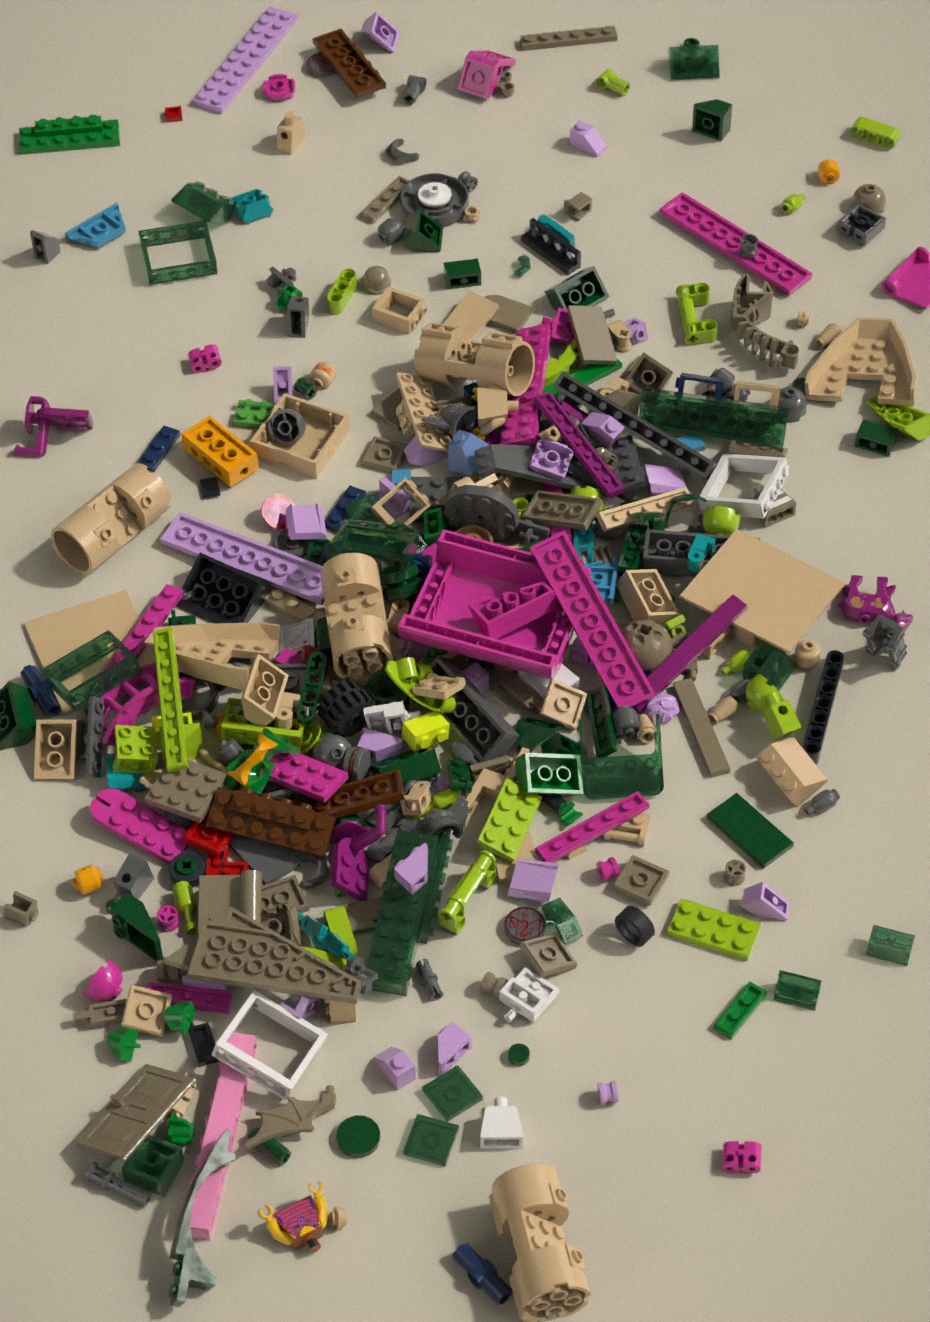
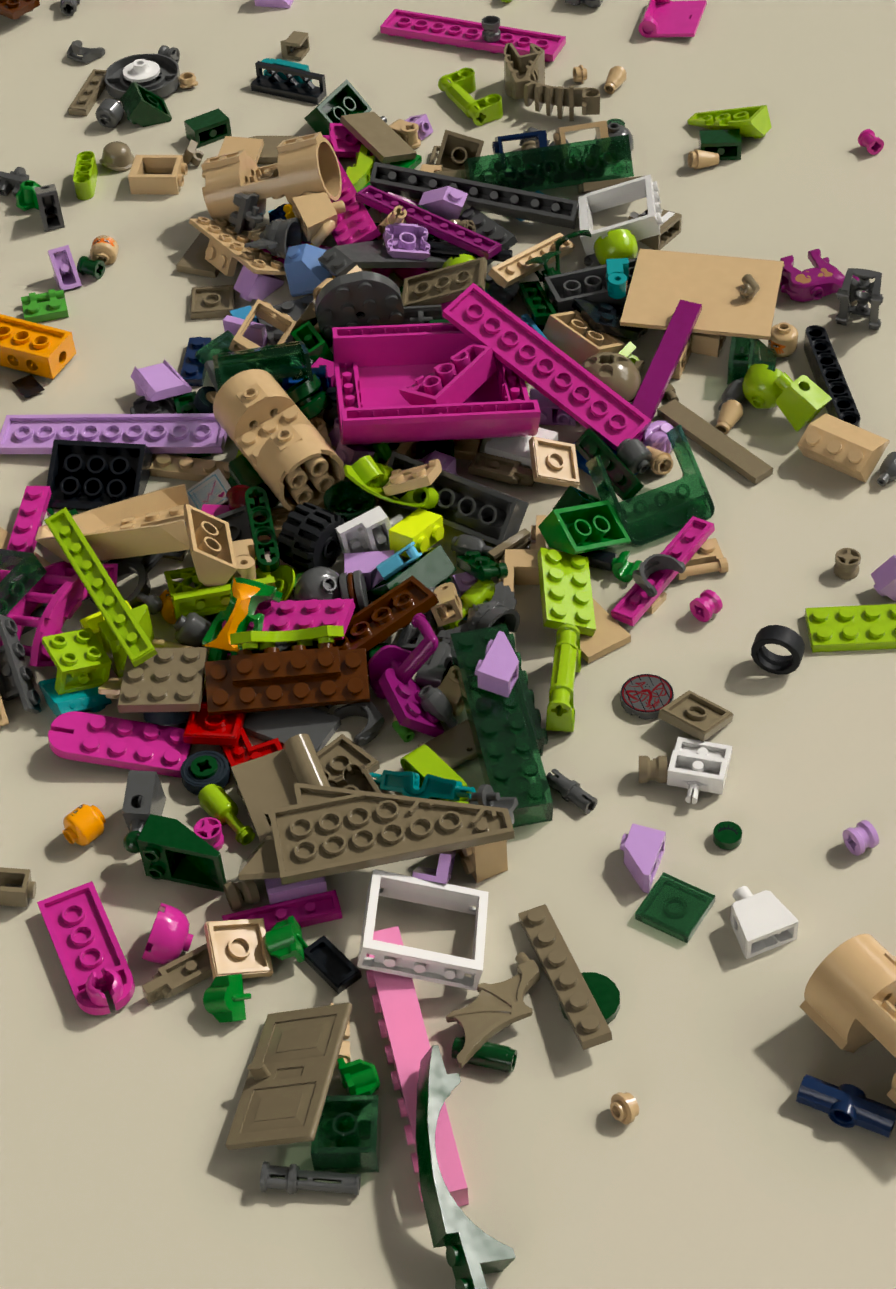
camera: 20 degrees left, 5 degrees down
(51, 971) = (88, 949): none -> dark pink plate
(268, 786) = (305, 637): none -> lime plate
(274, 511) = (118, 383): piece -> none
(286, 426) = (82, 303): dark grey cylinder -> none
(299, 1222) = (579, 1132): torso -> none
(321, 439) = (110, 307): tan tile -> none
(348, 1113) = (565, 977): none -> dark tan plate
(368, 879) = (437, 705): none -> dark grey plant
(396, 1067) = (590, 900): lavender slope -> none
(397, 751) = (395, 564): none -> medium azure bar
(431, 1140) = (682, 971): clear green tile -> none
(435, 297) = (192, 155): none -> dark tan tile
(441, 384) = (248, 214): none -> dark grey hips
(525, 266) = (268, 106): clear green arm -> none
(533, 880) = (631, 644): lavender slope -> none
(534, 732) = (540, 499): dark green slope -> none
(565, 921) = (696, 674): clear green slope -> none
(578, 823) = (652, 564): none -> dark grey helmet
(641, 880) = (749, 605): dark tan plate -> none
(662, 479) = (527, 236): lavender slope -> none
(672, 583) = (606, 319): none -> black wing
(736, 662) = (714, 369): lime plant -> none
(750, 830) = (833, 519): dark green tile -> none
(800, 601) = (751, 287): none -> dark tan arm
(853, 447) = (701, 159): none -> tan cone
(865, 352) = (669, 78): tan piece -> none

